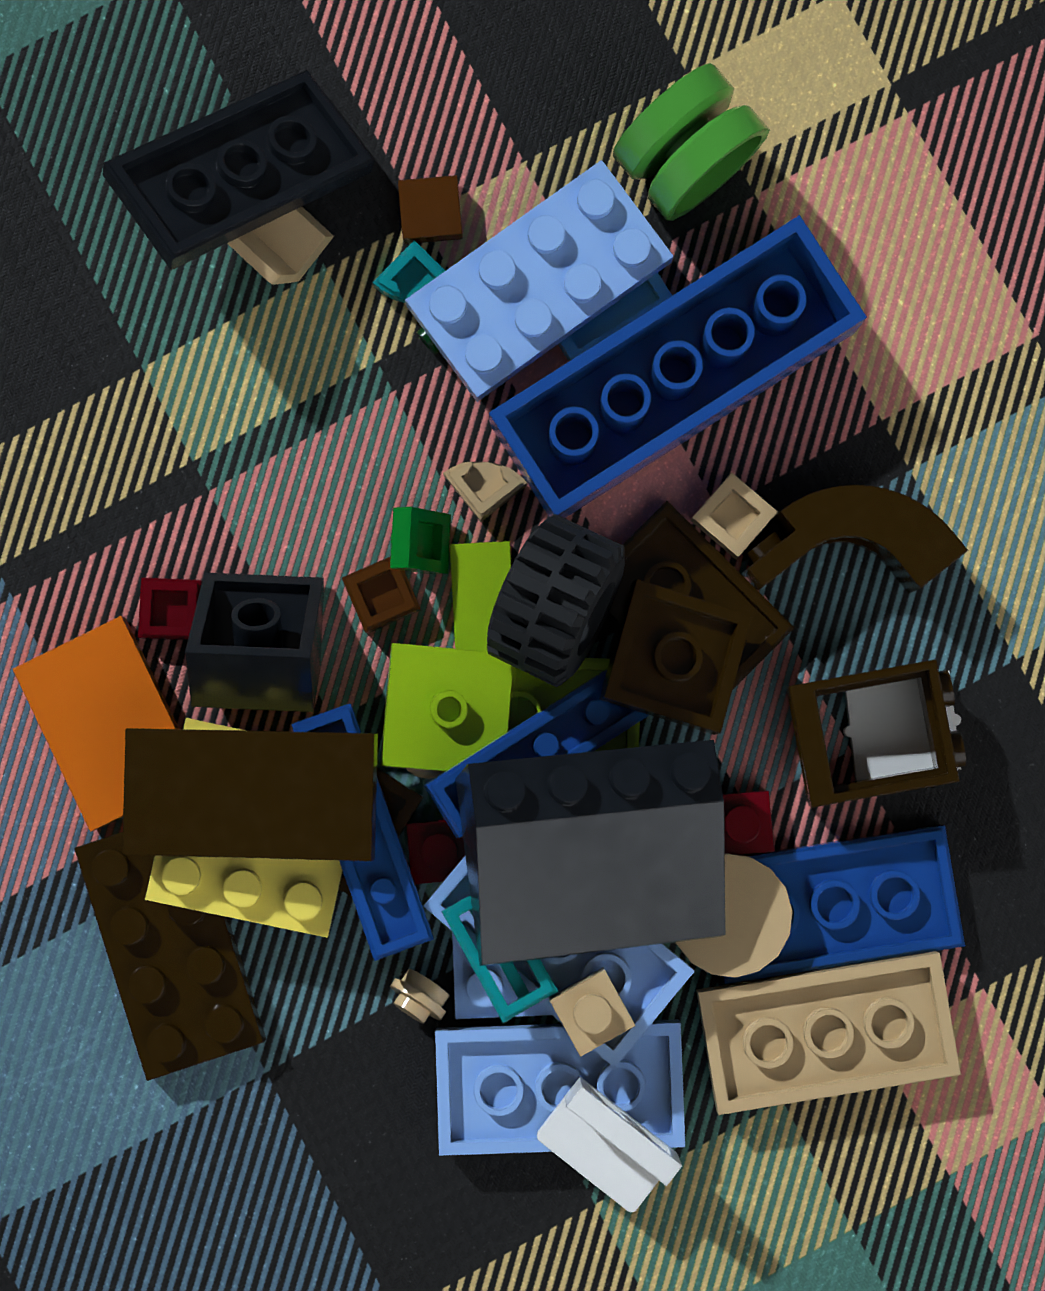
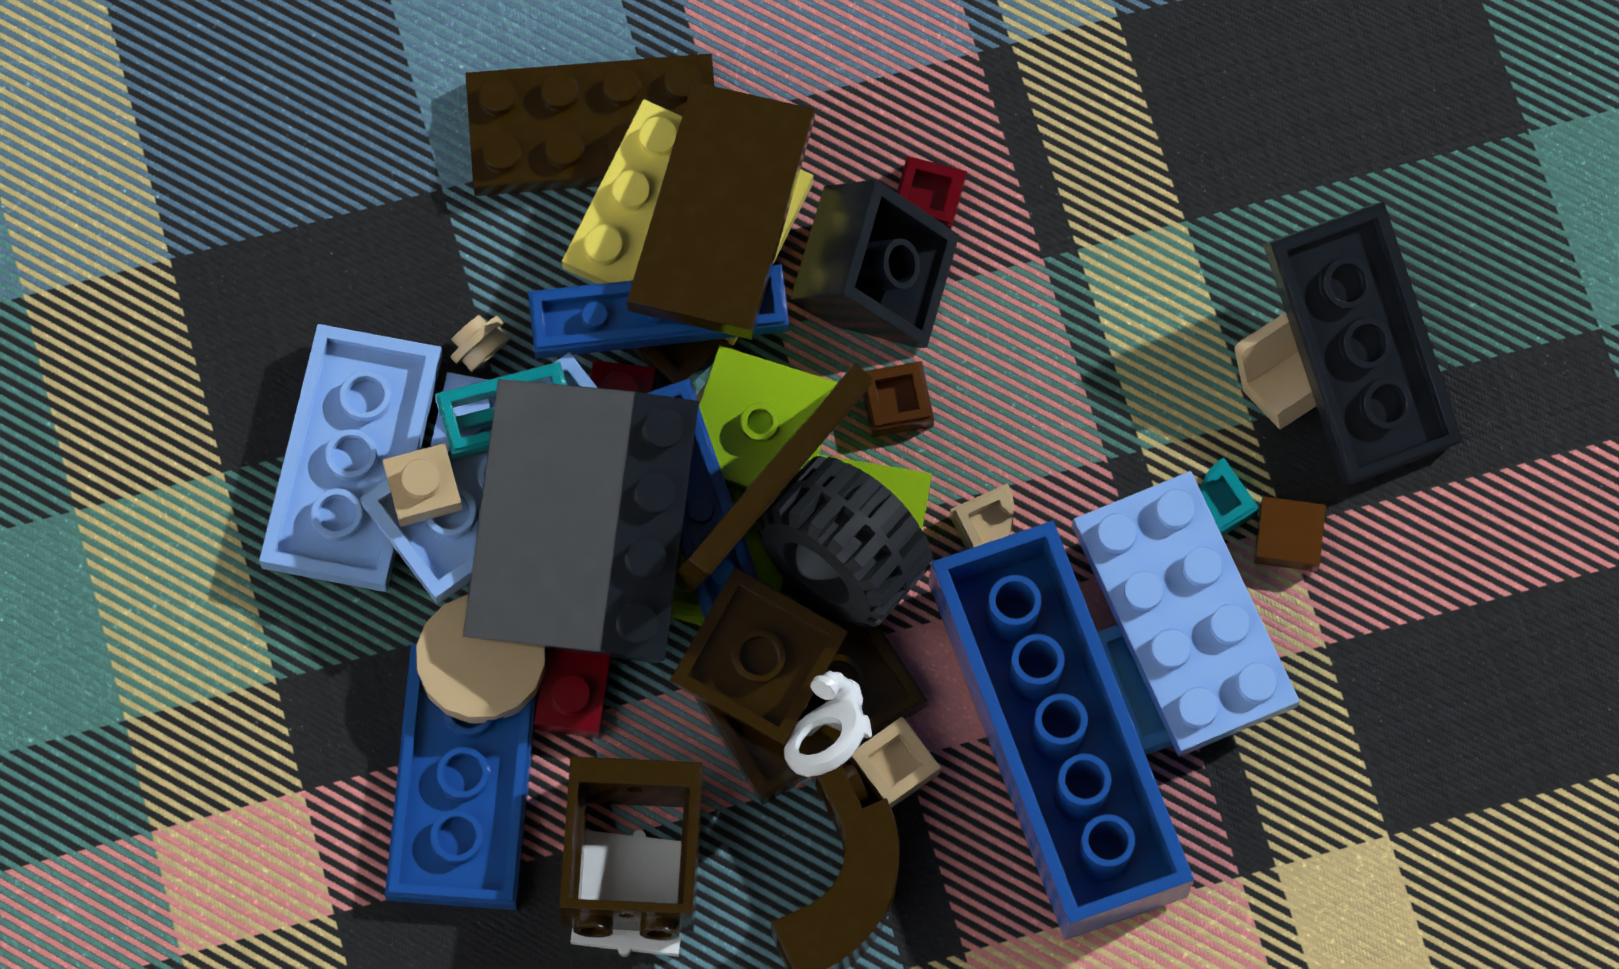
camera: 100 degrees right, 15 degrees down
(85, 702) = (861, 100): orange tile -> none
(420, 540) = (941, 442): green plate -> none
(521, 677) = (772, 479): none -> dark brown tile
(608, 1146) = (284, 482): white panel -> none
(690, 141) = (1299, 794): bright green wheel -> none
(703, 574) = (841, 713): none -> white piece
(828, 1032) = (334, 734): tan plate -> none

